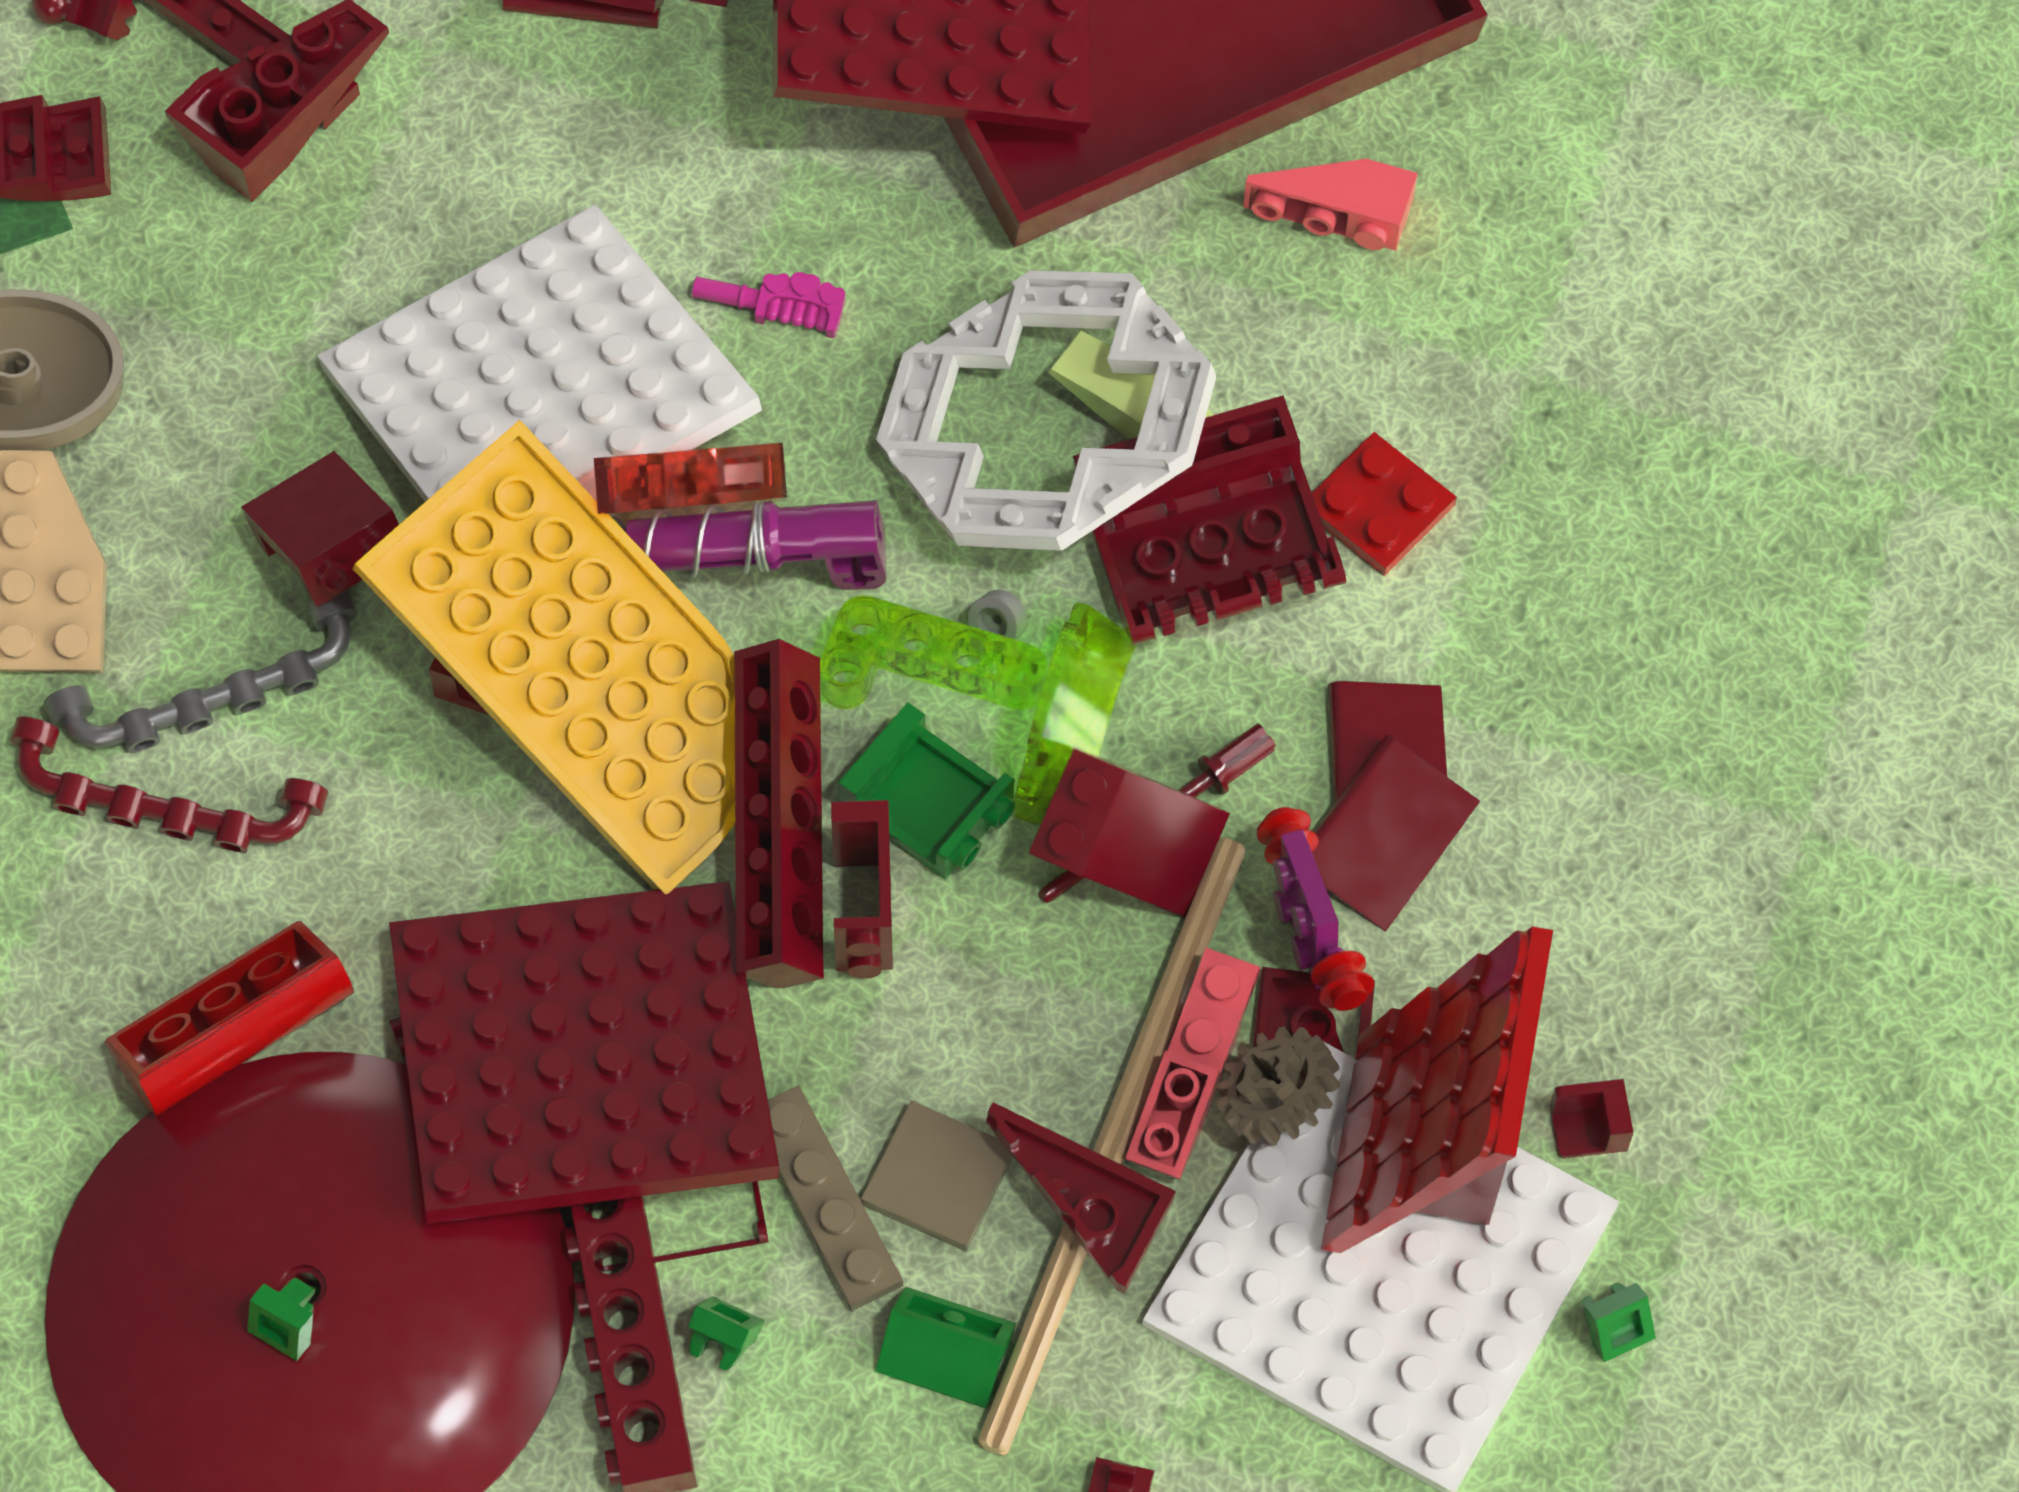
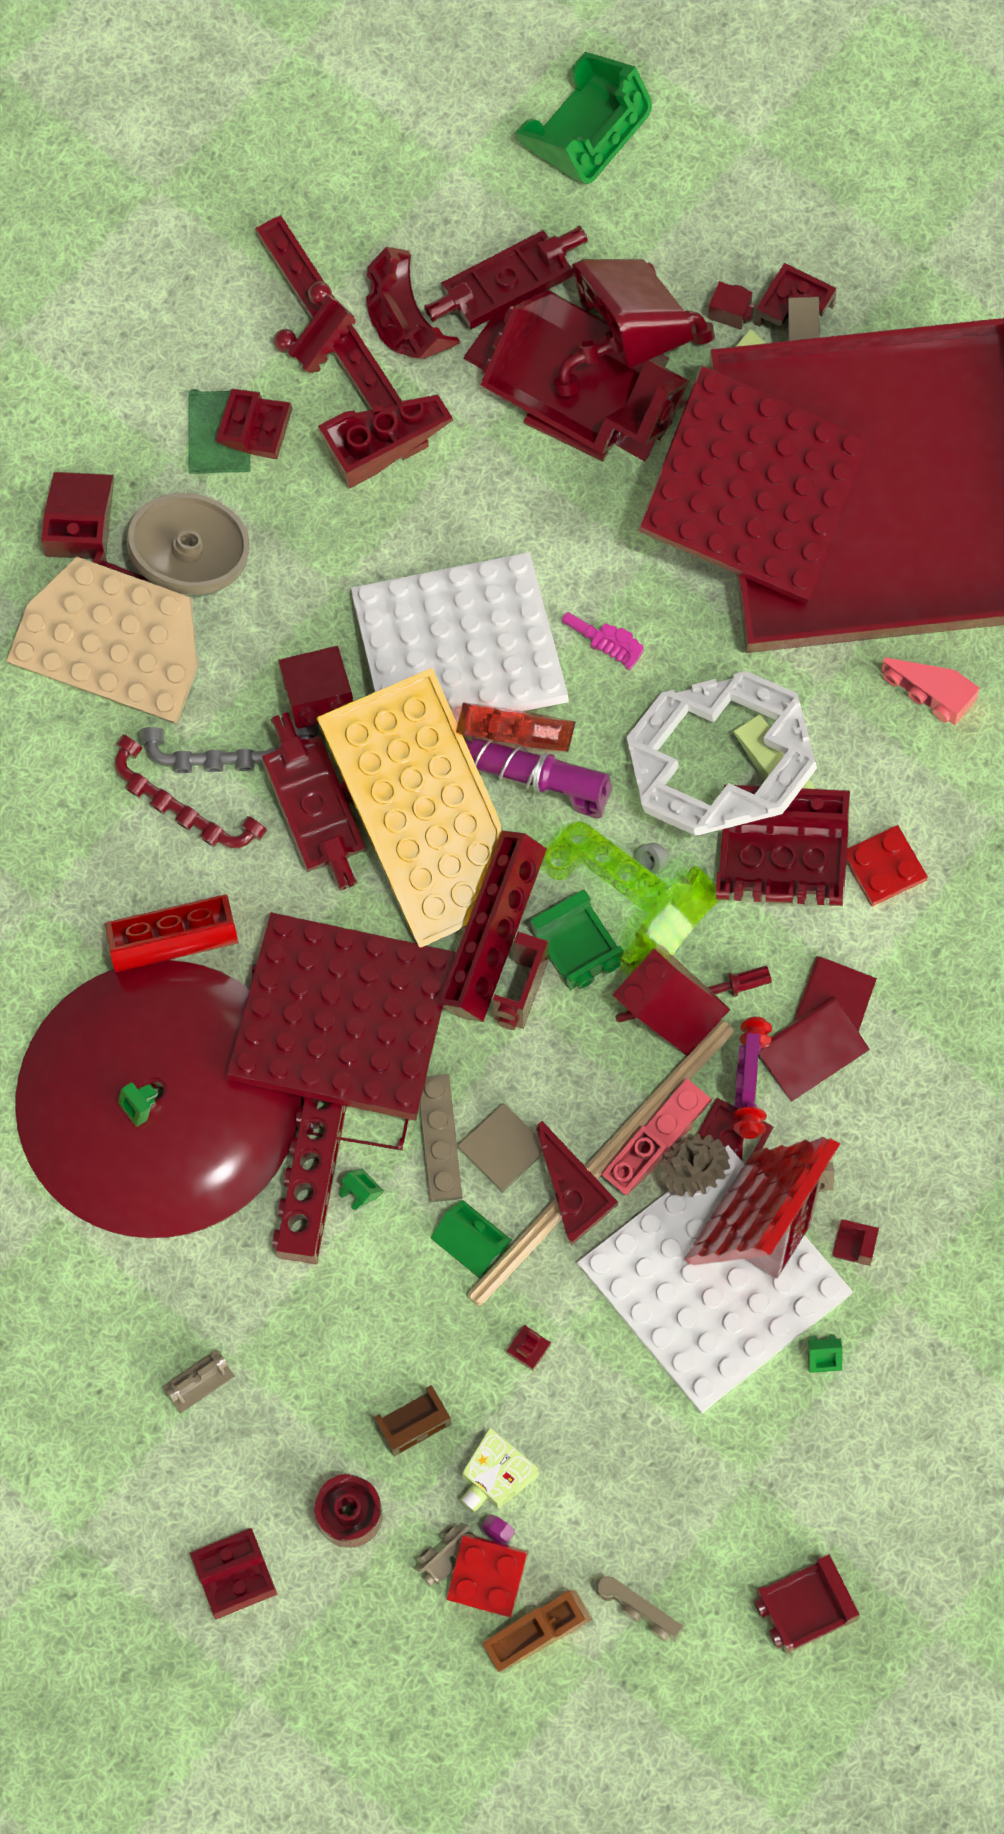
camera: 25 degrees right, 5 degrees up
(391, 719) = (313, 802): none -> dark red plate

